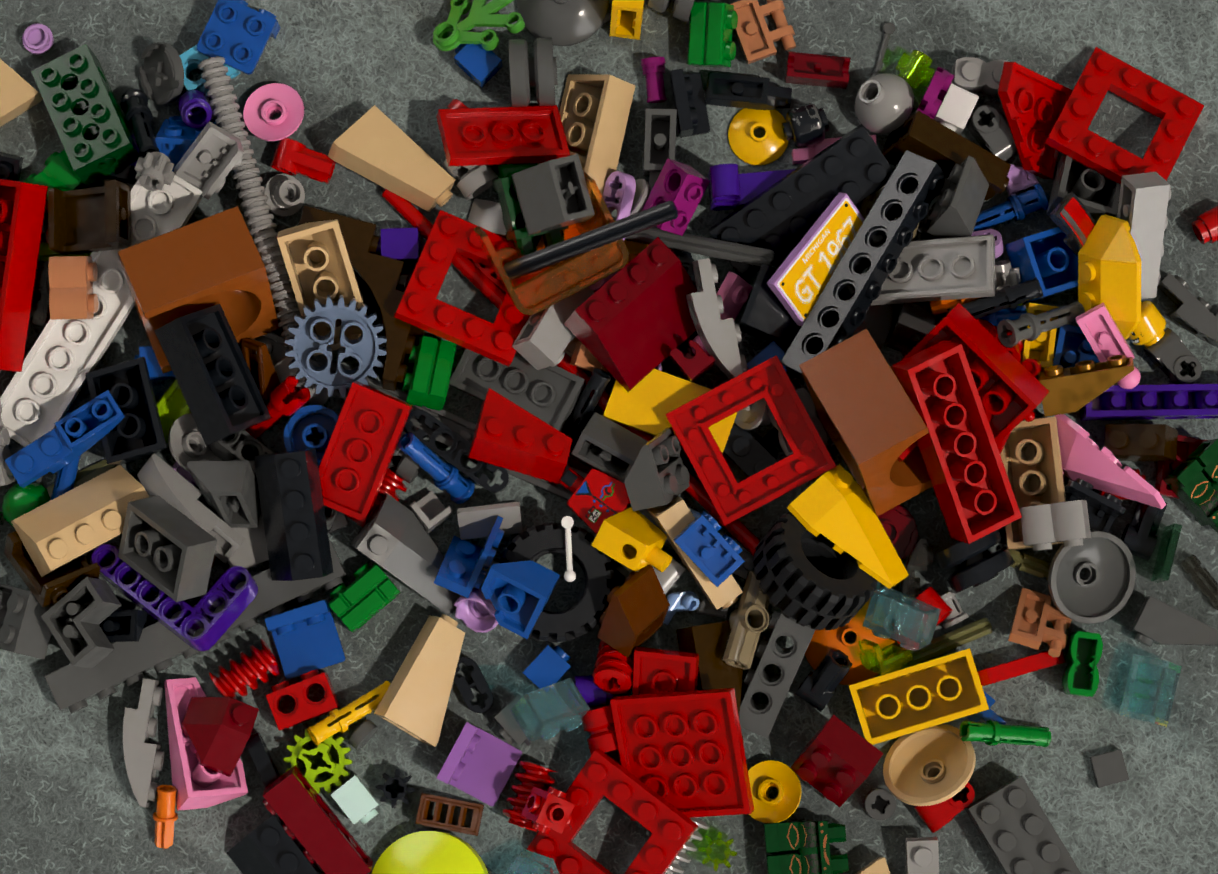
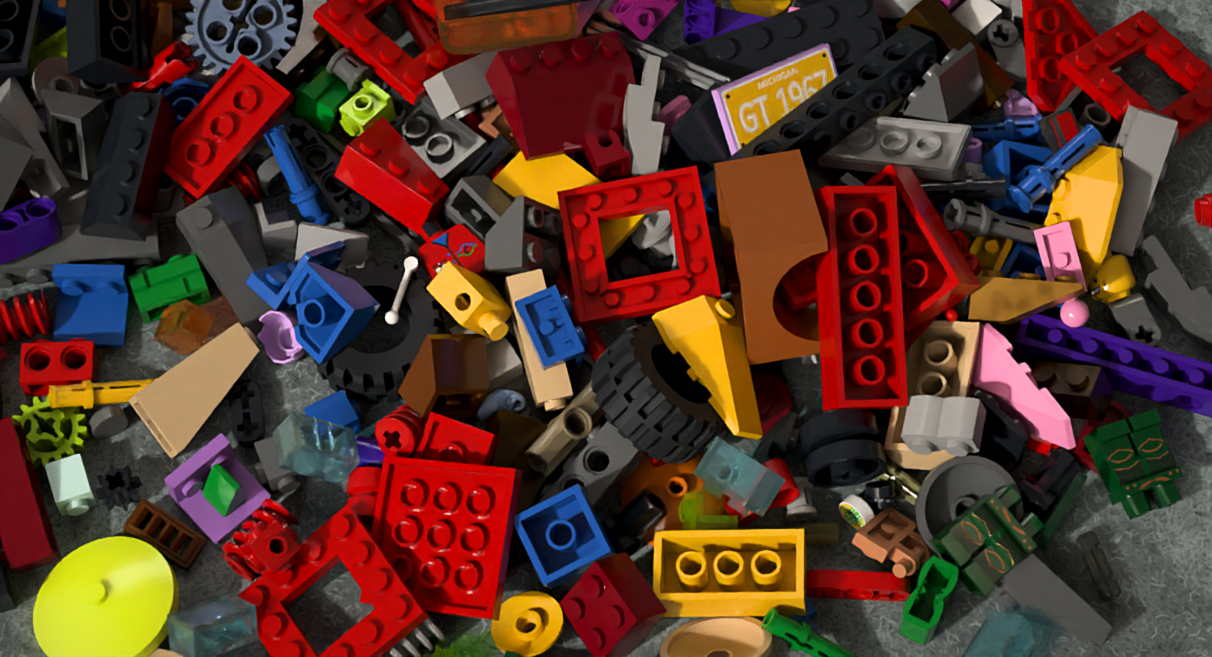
camera: 20 degrees right, 20 degrees down
(393, 632) = (183, 327): none -> clear orange brick
(443, 354) = (348, 69): none -> dark grey bush
(474, 396) = (366, 109): none -> lime brick
(483, 765) = (222, 491): none -> green slope
(782, 722) = (563, 536): none -> blue brick
(1000, 603) = (856, 511): none -> white tile
(1014, 581) = (881, 494): none -> black plate
(1069, 267) = (1043, 178): none -> blue pin
(1113, 600) = (988, 540): none -> dark green hips

